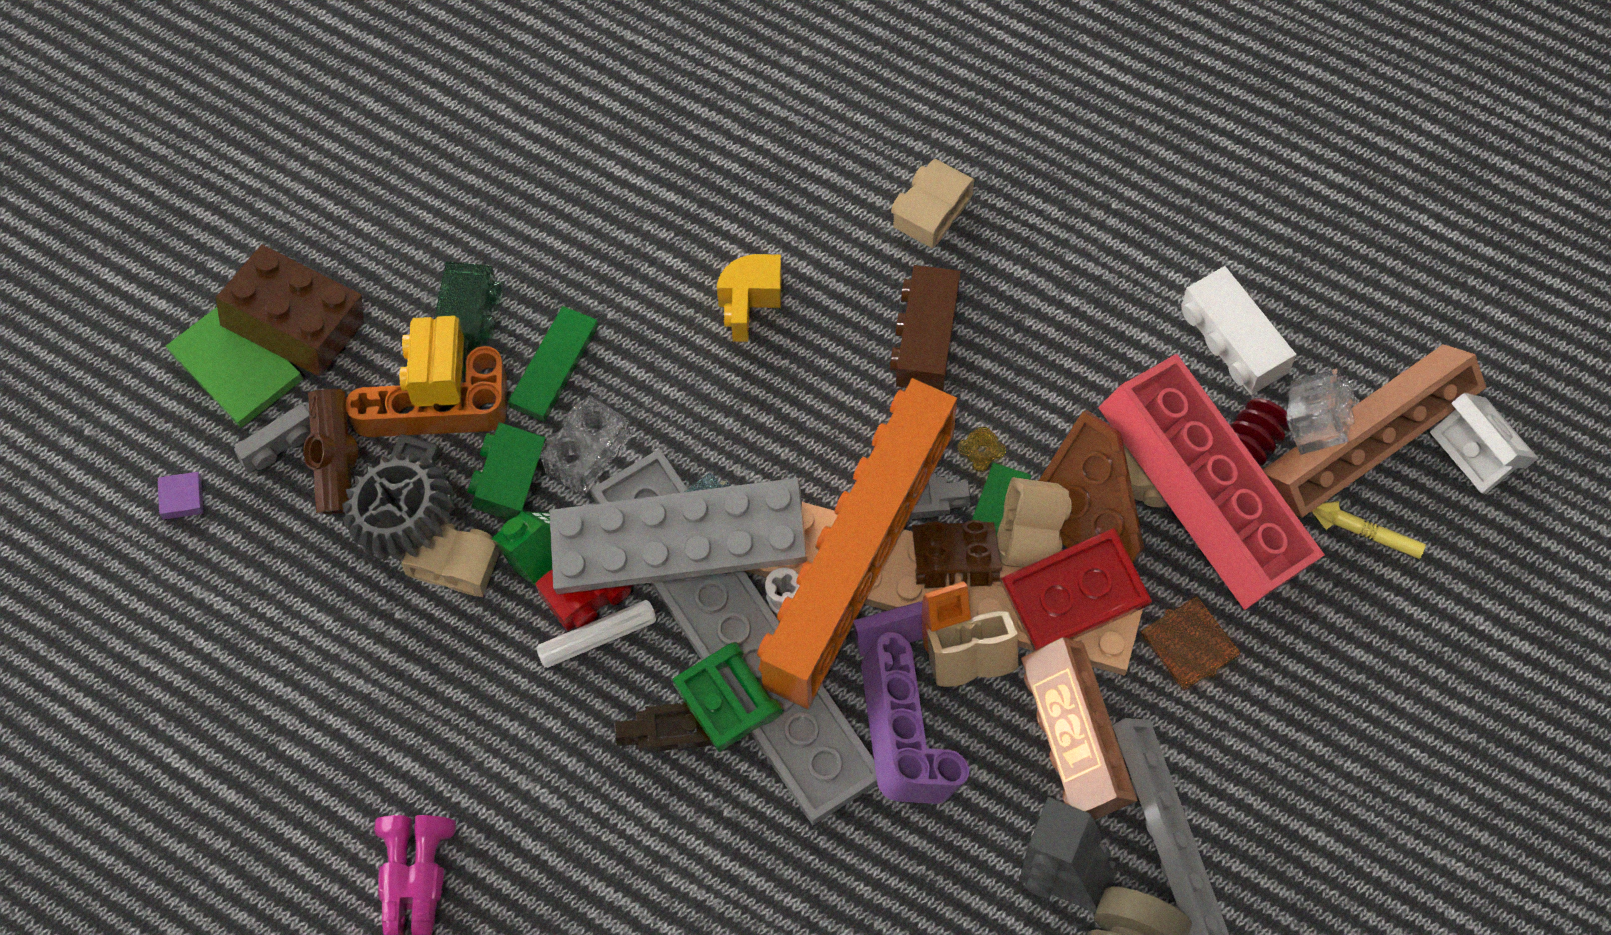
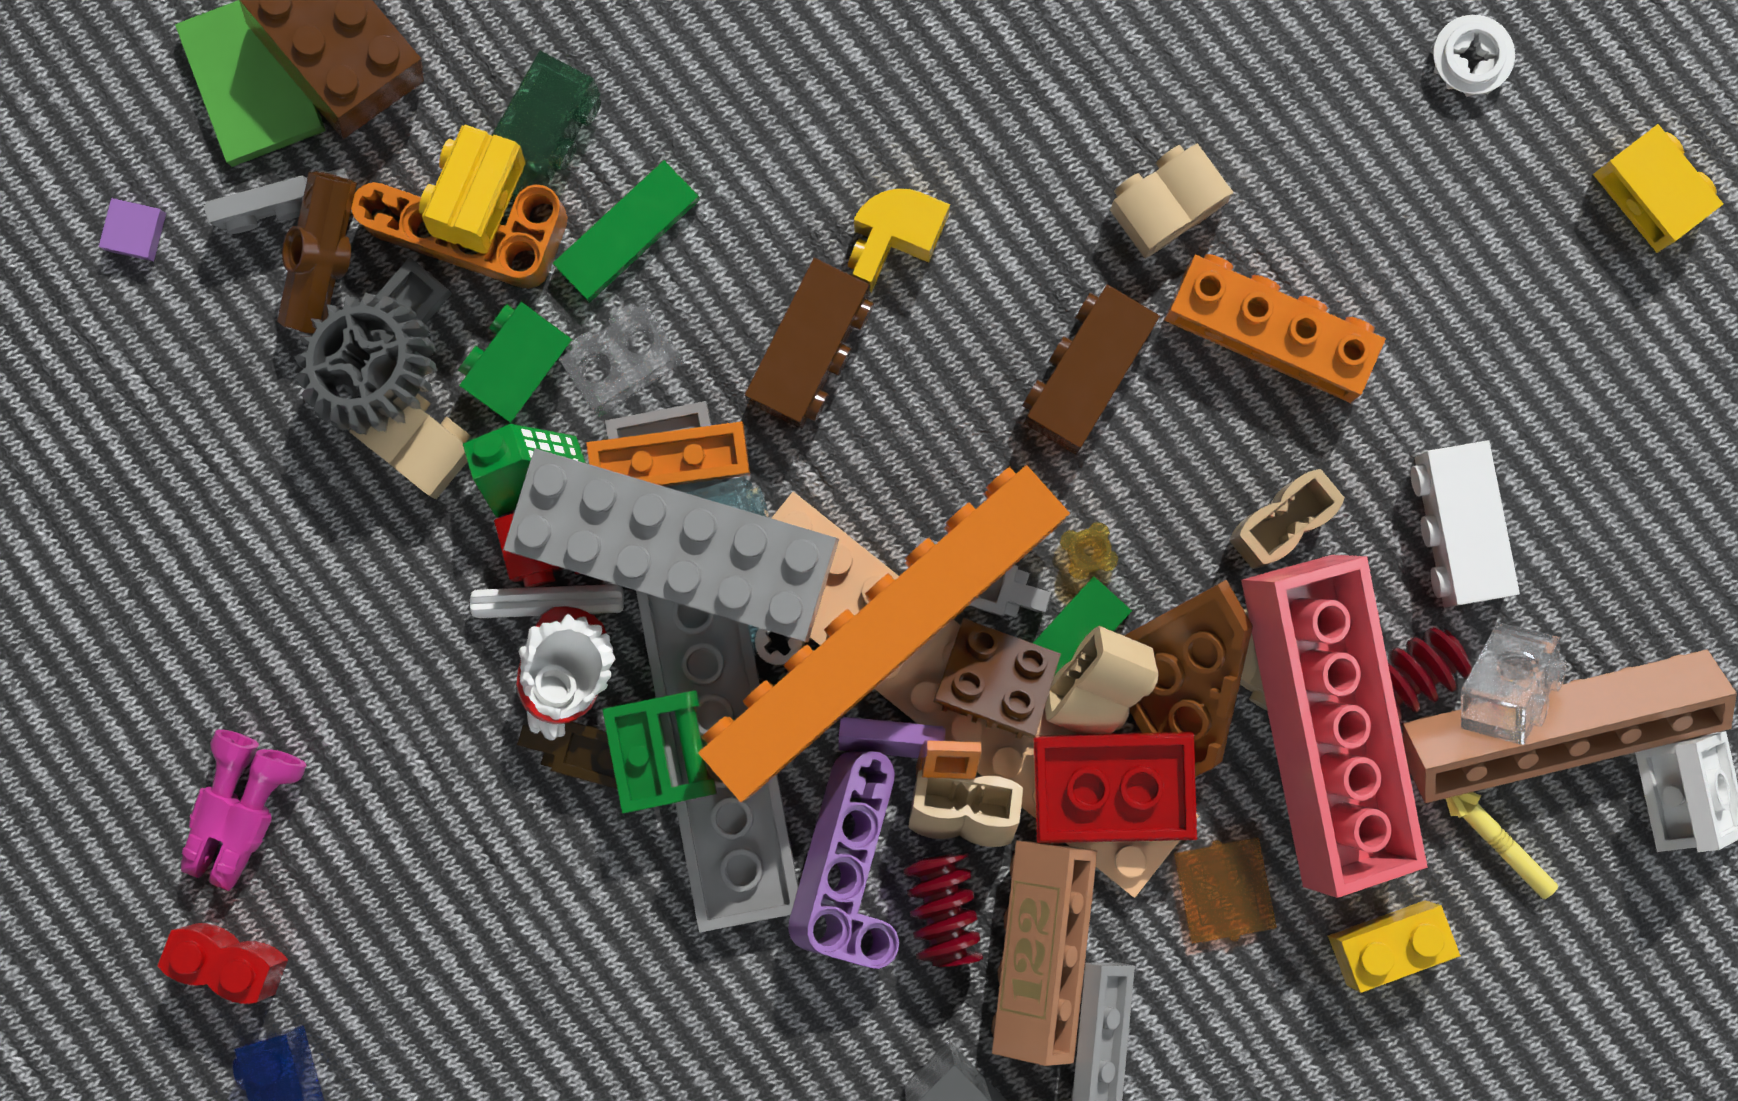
camera: 25 degrees right, 20 degrees up
(630, 668) = (563, 668): none -> white hair
(663, 478) = (676, 455): none -> orange plate
(719, 386) = (810, 344): none -> reddish brown brick
(987, 732) = (943, 910): none -> dark red piece
(1043, 256) = (1275, 328): none -> orange brick
(1104, 36) = (1490, 42): none -> white gear
(1111, 367) = (1293, 511): none -> tan brick
(1258, 79) = (1659, 188): none -> yellow brick
(1329, 626) = (1394, 946): none -> yellow brick

